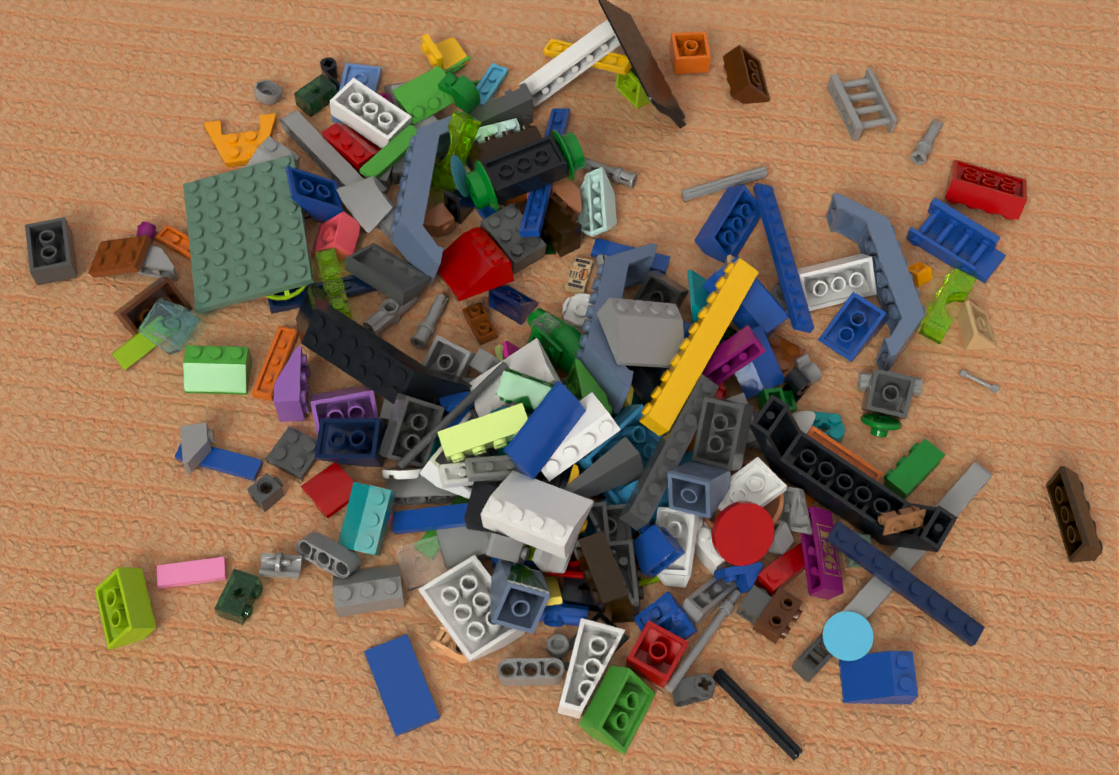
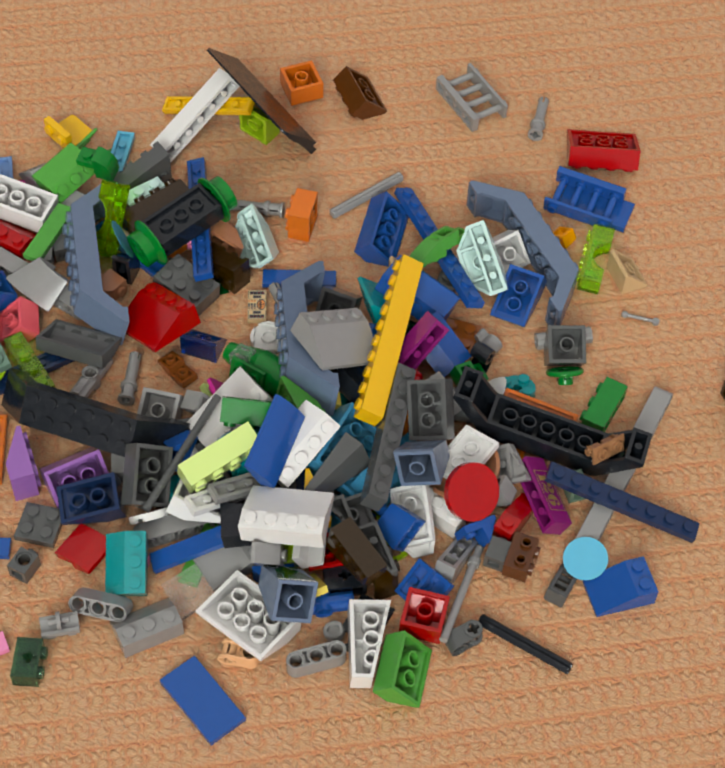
camera: 15 degrees left, 5 degrees down
(651, 190) = (302, 214): none -> orange brick
(778, 254) = (436, 245): none -> bright green slope
(823, 280) = (481, 259): none -> light aqua wedge

